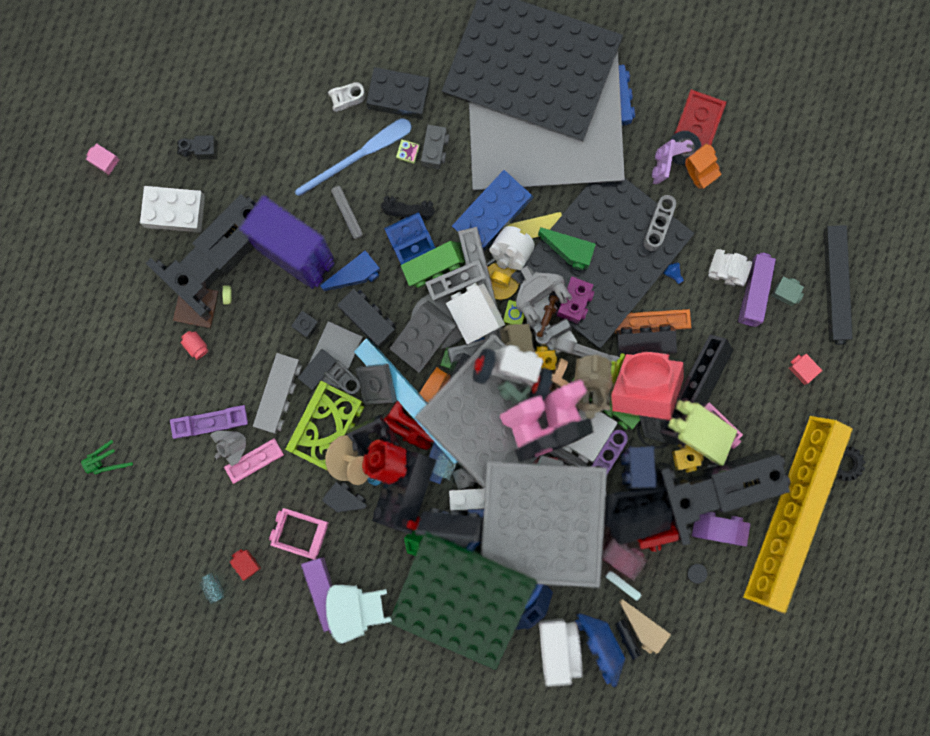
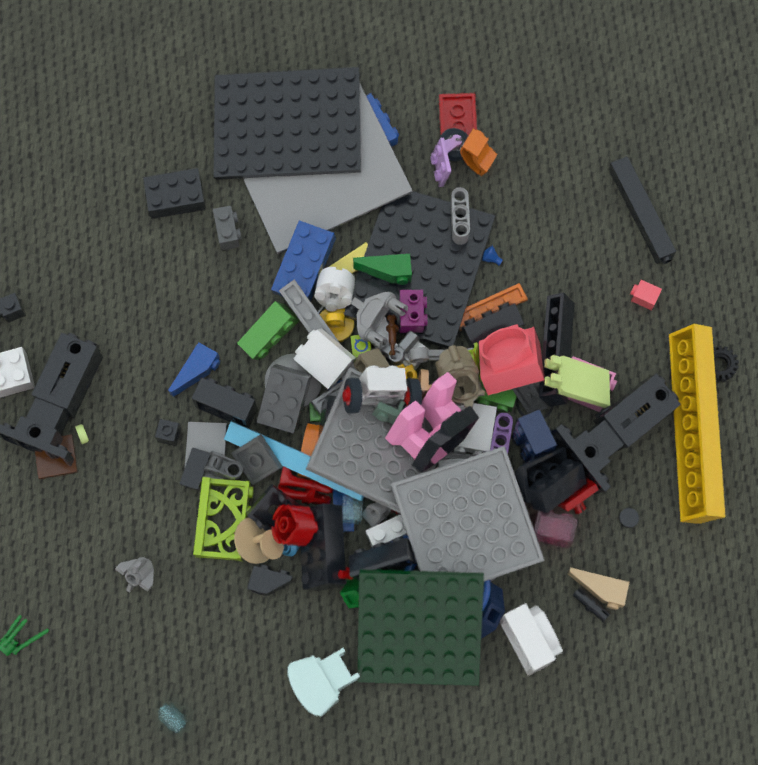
camera: 25 degrees left, 10 degrees down
(194, 344) = (67, 492): coral brick -> none
(209, 422) = (107, 561): medium lavender slope -> none
(244, 564) = (195, 681): red brick -> none
(254, 461) = (167, 579): bright pink tile -> none
(276, 394) = (165, 507): light grey brick -> none
(288, 243) = (124, 356): dark purple brick -> none
(317, 541) = (214, 622): bright pink window -> none
(319, 585) = (278, 672): medium lavender slope -> none
(345, 96) = (126, 214): white piece -> none
(347, 212) = (167, 316): light grey axle -> none
(384, 138) = (175, 240): light blue piece -> none
(400, 209) = (208, 297): black piece -> none
(407, 151) = (203, 242): tile -> none
(409, 238) = (235, 316): blue brick -> none
(455, 280) = (293, 335): light grey slope -> none
(605, 645) = (575, 617): blue wedge -> none
(623, 585) = (565, 555): light aqua tile -> none
(681, 461) = (568, 415): yellow brick -> none
(721, 529) = (633, 467): medium lavender brick -> none
(730, 267) = (540, 231): white brick -> none
(757, 290) = (573, 243): medium lavender slope -> none
(788, 291) = (601, 233): sand green brick -> none

